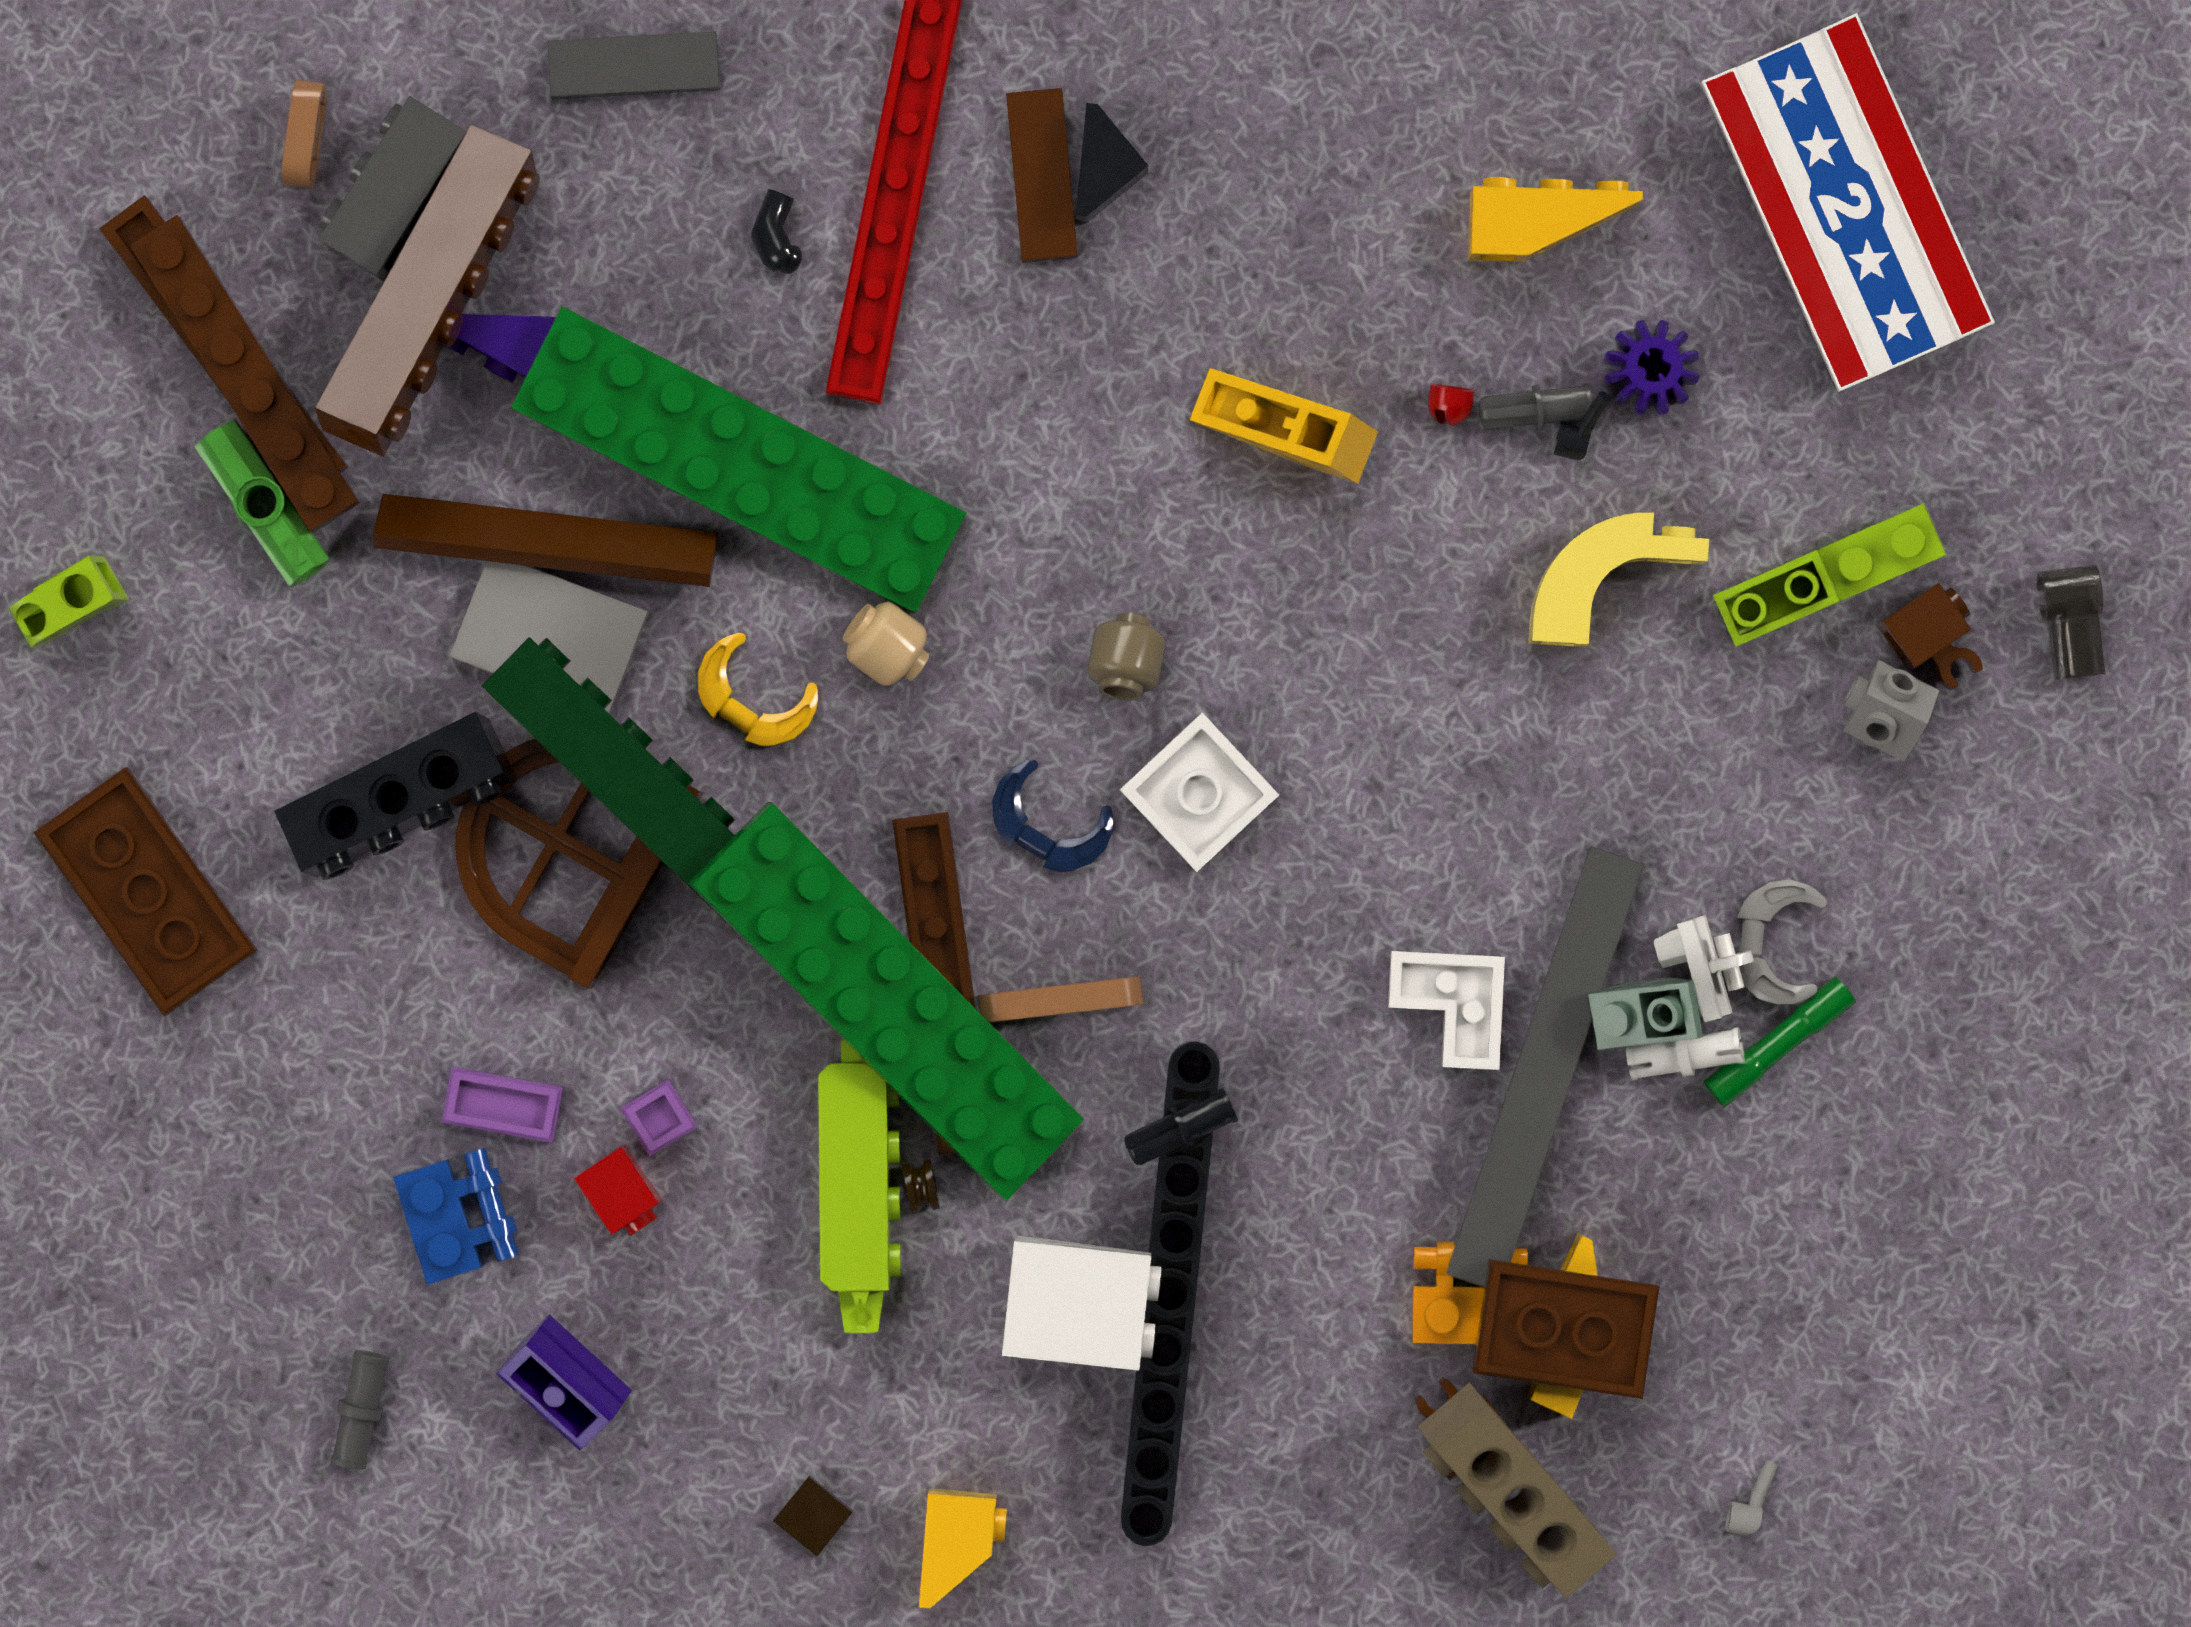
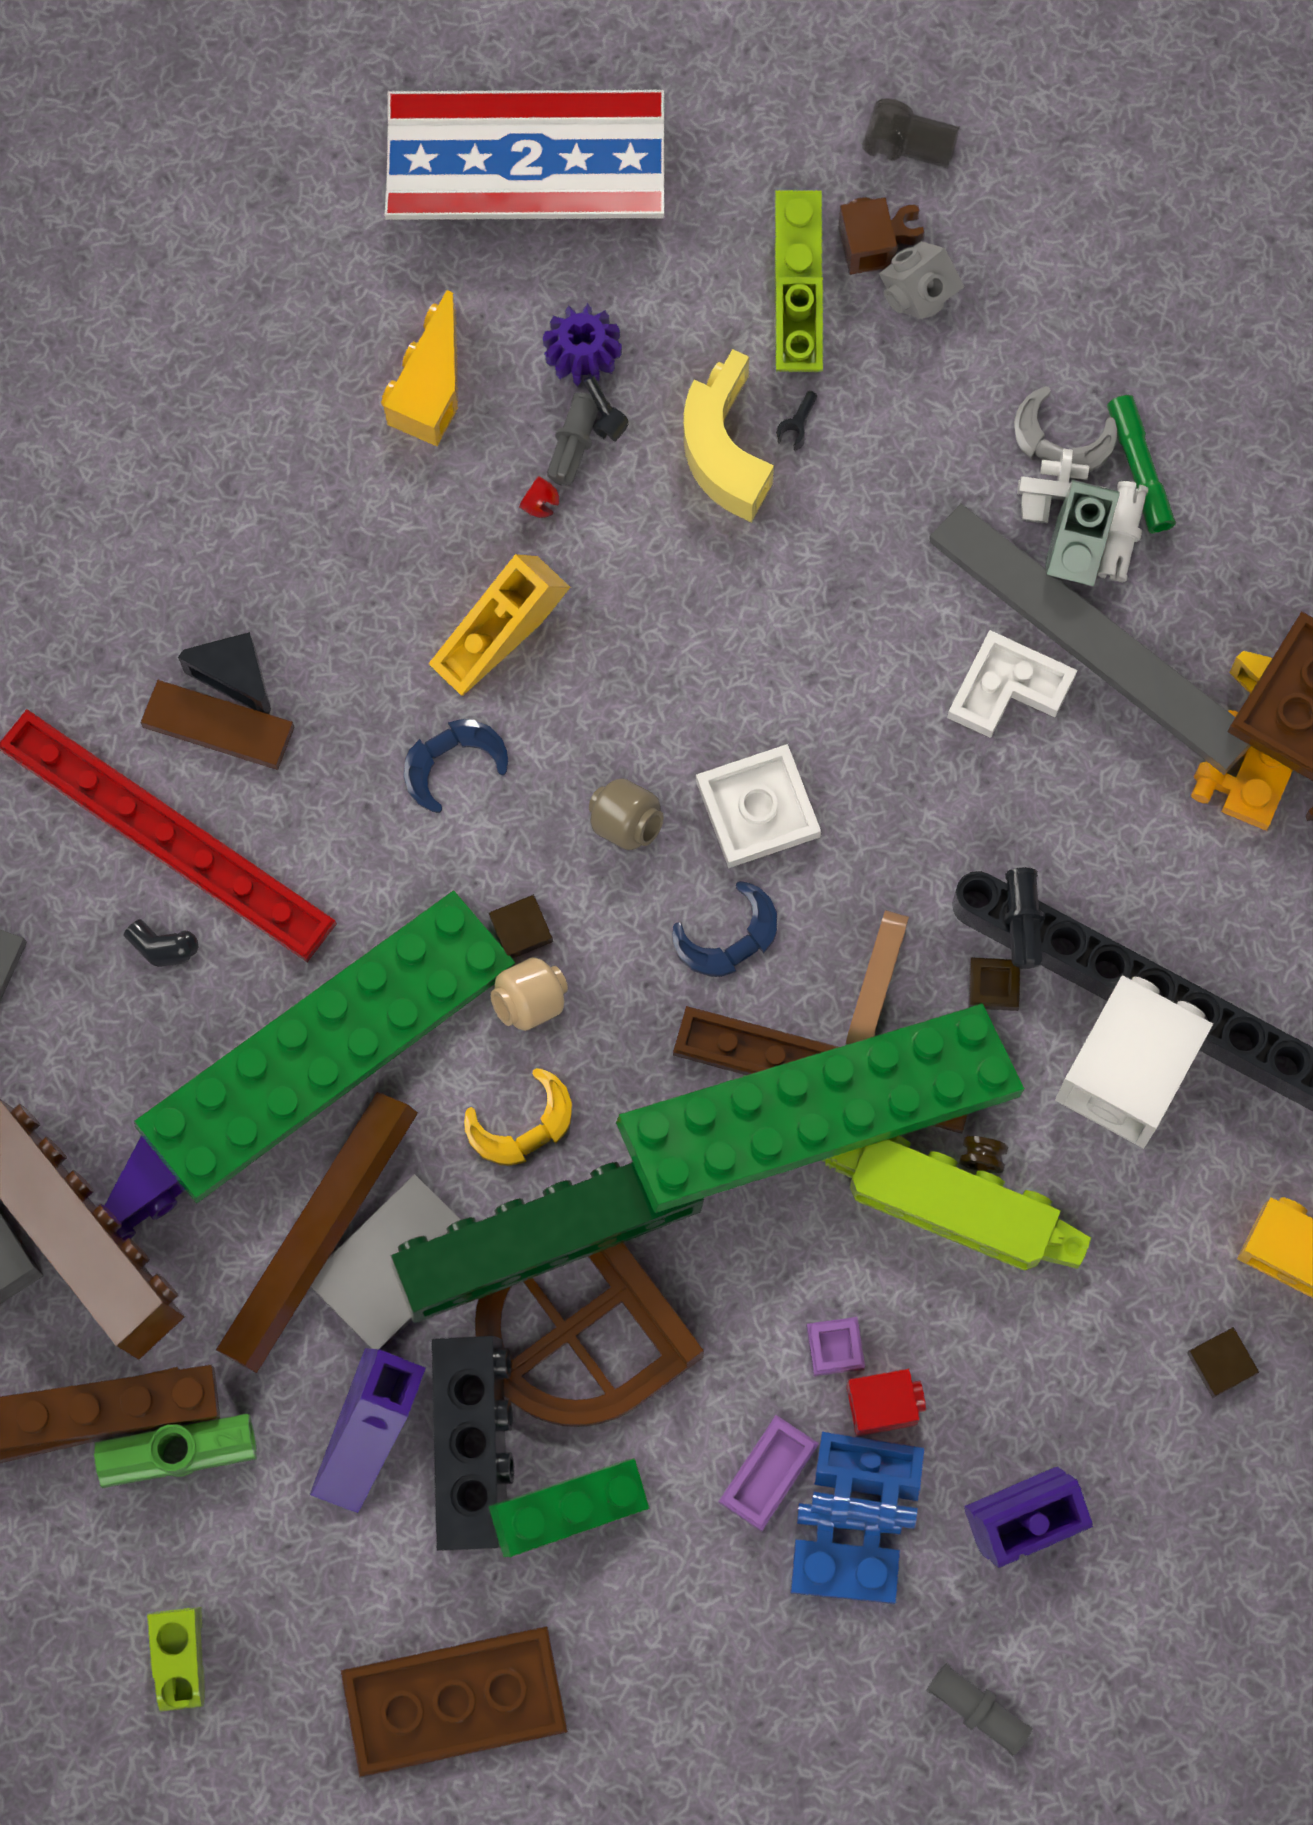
camera: 65 degrees left, 15 degrees down
(370, 684) = (367, 1427): none -> dark purple slope
(374, 922) = (568, 1507): none -> green plate
(547, 1204) = (868, 1468): none -> blue plate
(959, 600) = (521, 927): none -> dark brown tile
(1095, 410) = (463, 731): none -> dark blue piece
(1110, 1120) = (994, 984): none -> dark brown tile
(1669, 644) = (798, 421): none -> black hand

